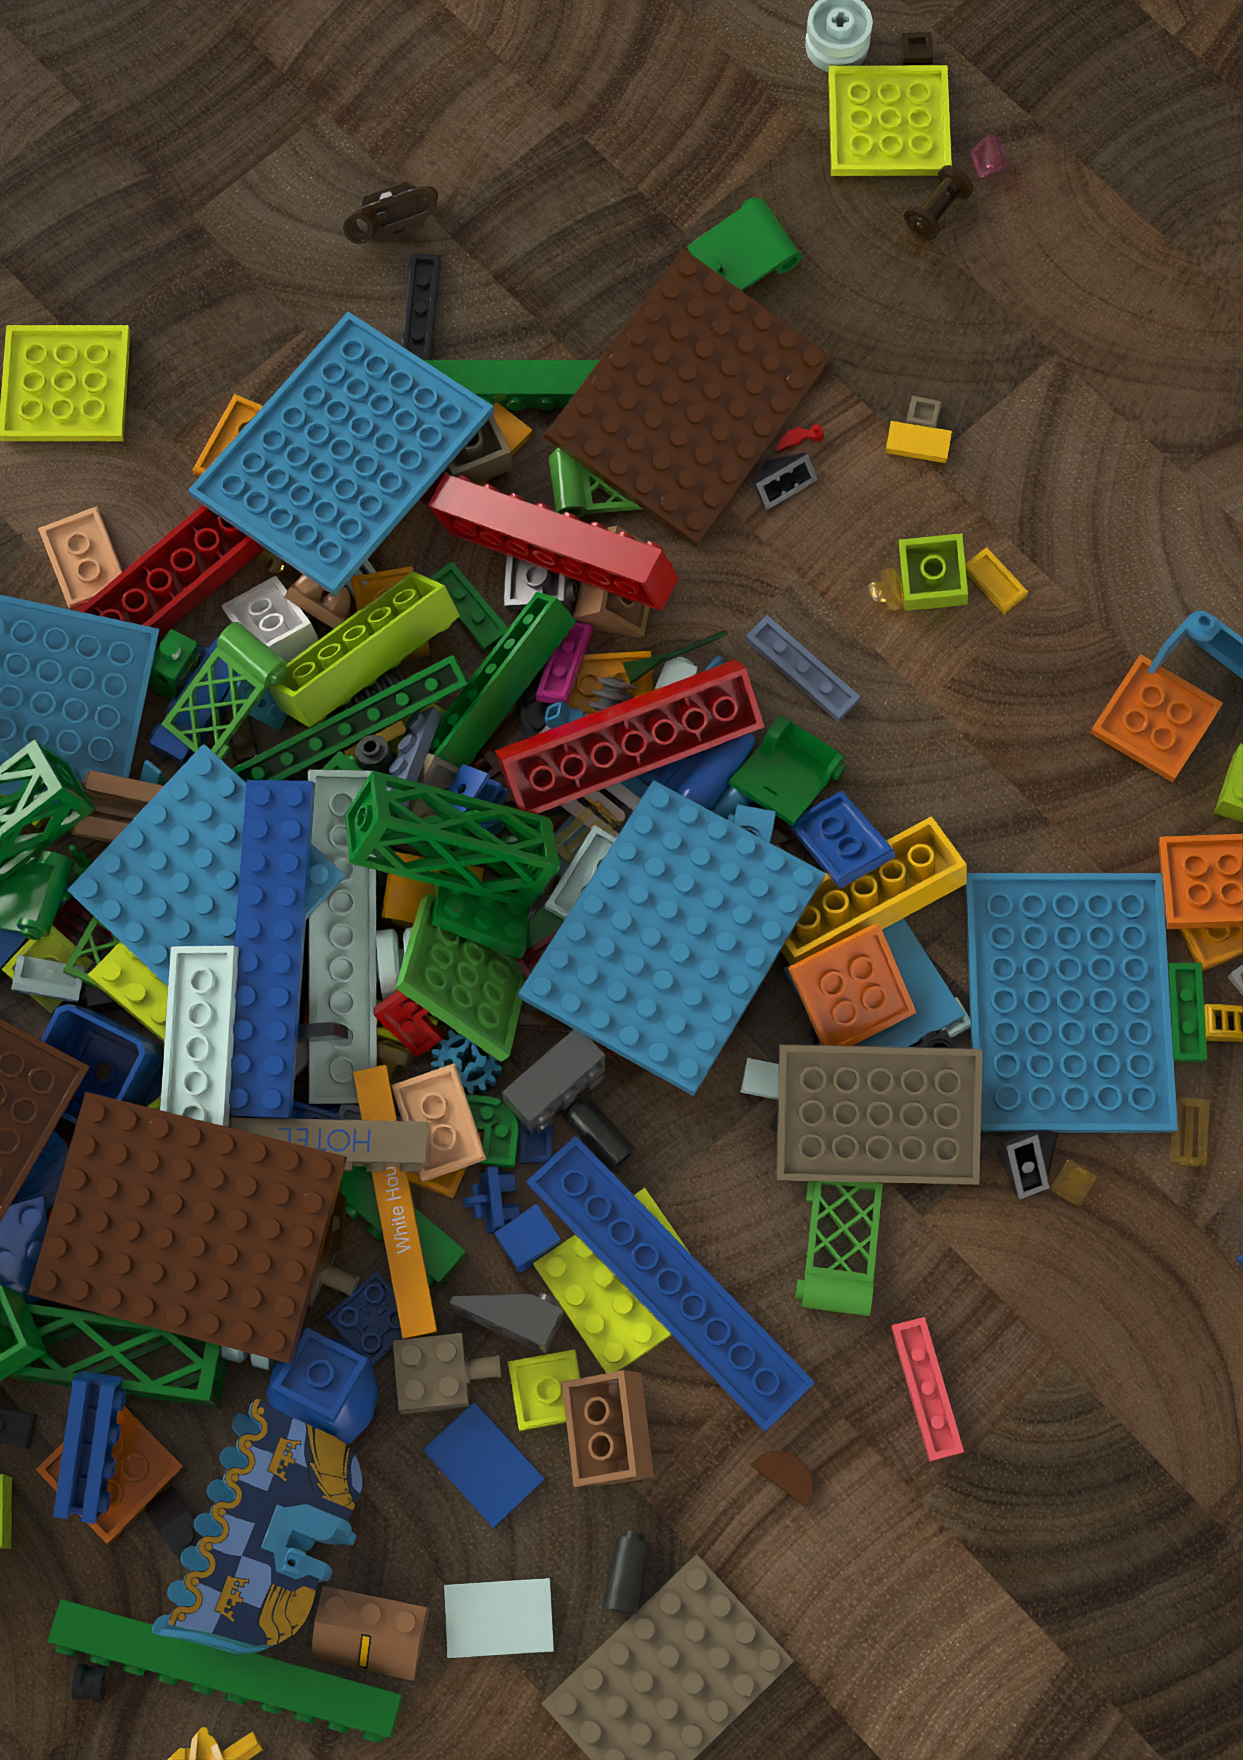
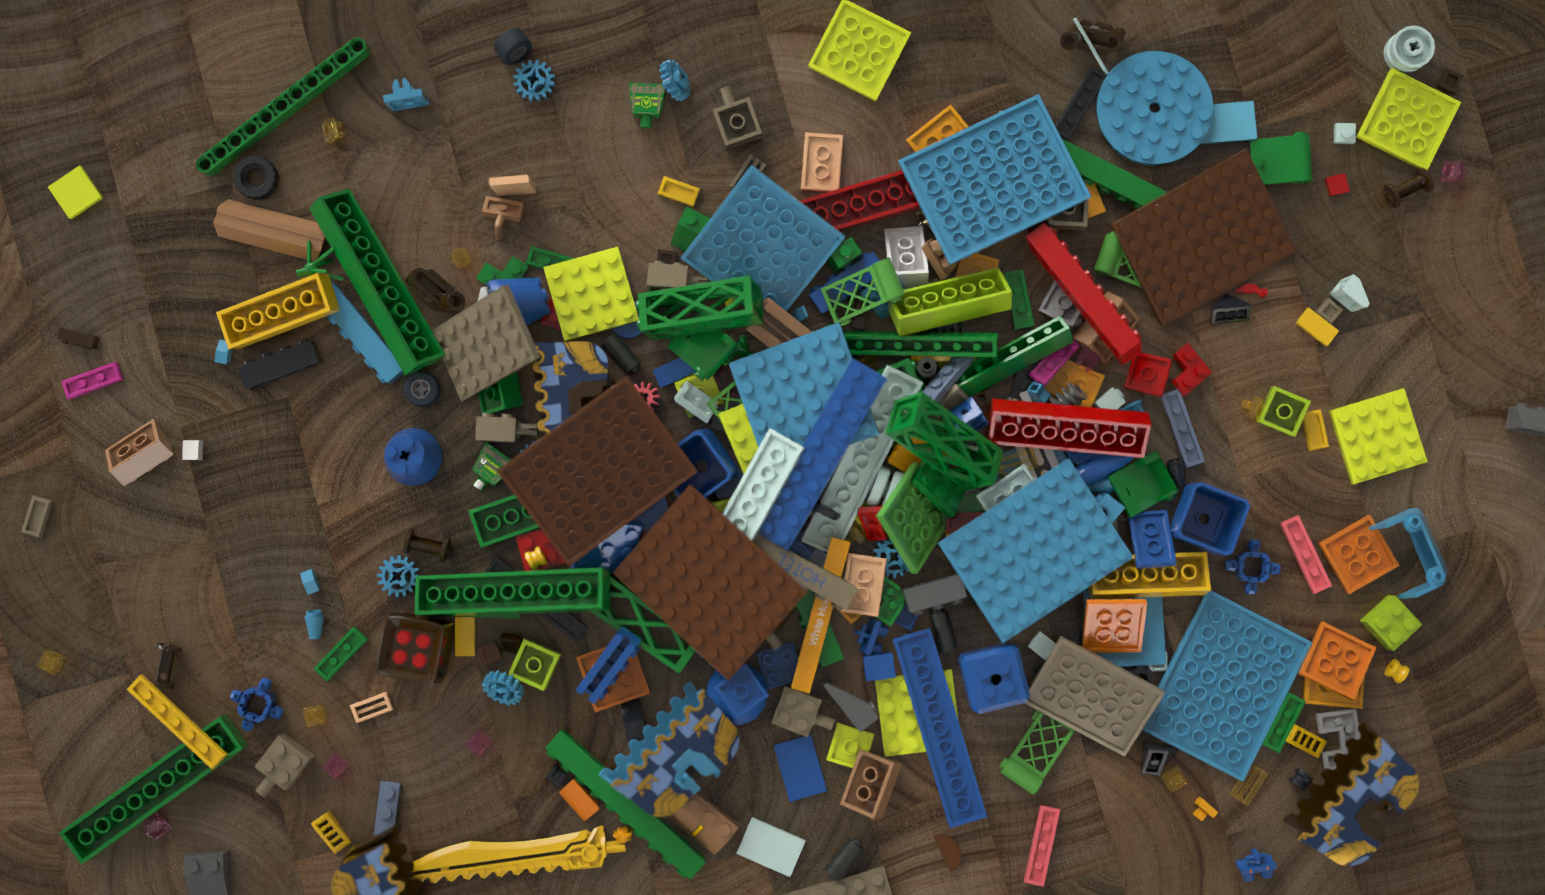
camera: 25 degrees right, 15 degrees up
(145, 1703) = (579, 799): none -> orange brick
(245, 1723) = (623, 834): none -> light orange plate
(395, 225) = (1090, 46): none -> light aqua axle
(539, 306) = (1149, 136): none -> dark azure plate
(613, 635) = (1089, 357): none -> clear pink tile
(627, 247) = (1232, 123): none -> medium azure tile
(638, 668) = (1094, 386): dark green piece -> none
(703, 1190) = (978, 667): none -> blue plate
(712, 611) = (1148, 374): none -> red plate
(775, 583) = (1194, 369): none -> red plate
(813, 178) = (1344, 133): none -> light aqua plate
(827, 729) = (1177, 471): none -> black cone
(839, 247) = (1337, 185): none -> red tile
(912, 742) = (1225, 518): none -> blue plate
(930, 382) = (1350, 293): none -> light aqua tile
(1034, 802) = (1238, 565): none -> blue piece
(1080, 755) = (1305, 554): none -> coral plate
(1089, 546) = (1378, 436): none -> neon yellow plate
(1144, 1201) = (1204, 809): none -> light orange tile

